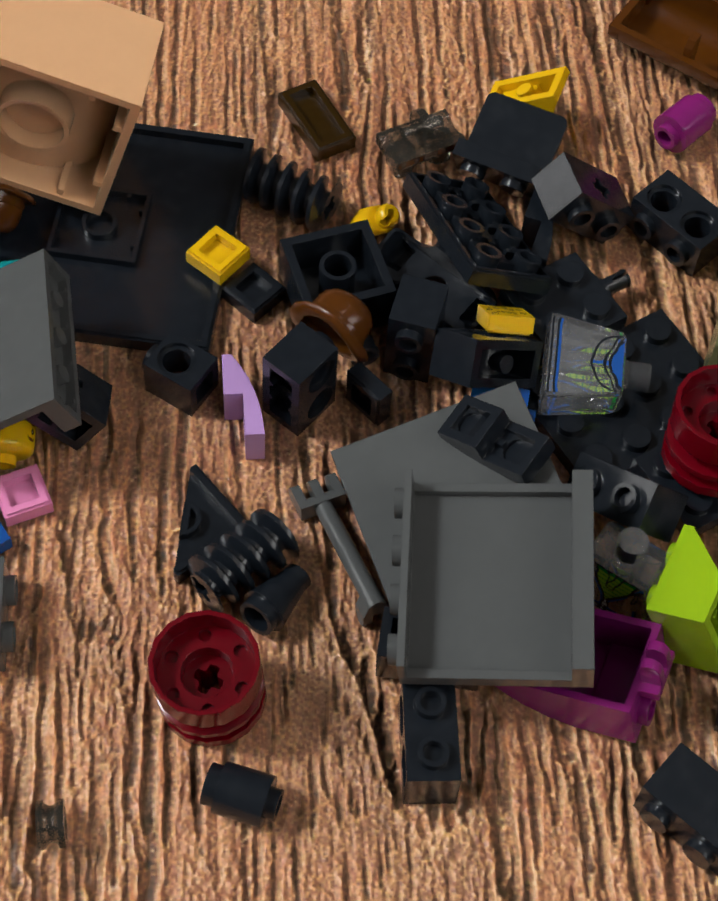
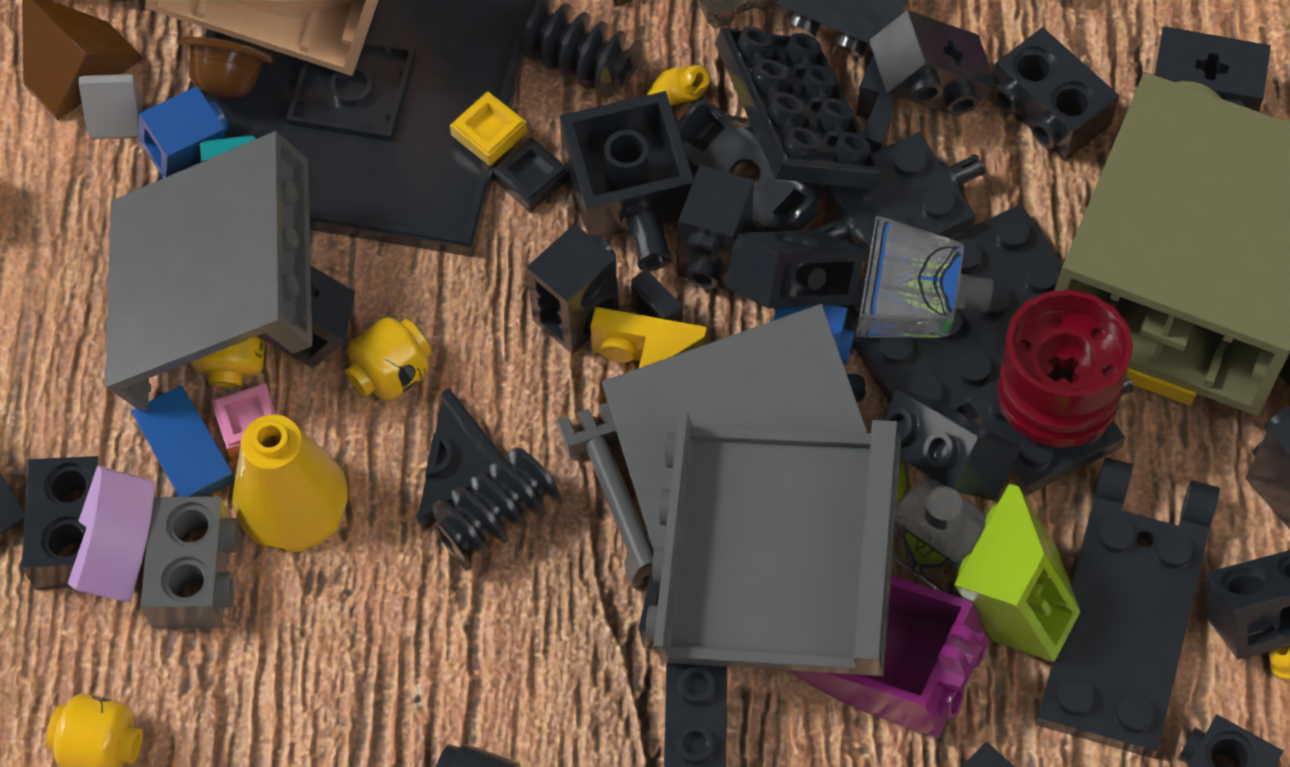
camera: 10 degrees right, 5 degrees up
(59, 546) = (286, 486): none -> yellow cone
(142, 441) = (388, 358): none -> yellow head
(183, 389) = (439, 296): black brick -> none
(195, 655) = (439, 617): dark red wheel -> none
(242, 403) = (505, 314): lavender slope -> none
(272, 602) = (528, 556): black cone -> none
(340, 317) = (621, 218): reddish brown hat -> none
(356, 419) = (641, 338): none -> yellow slope
(495, 441) = (792, 376): black slope -> none
(505, 320) = (822, 221): yellow tile -> none

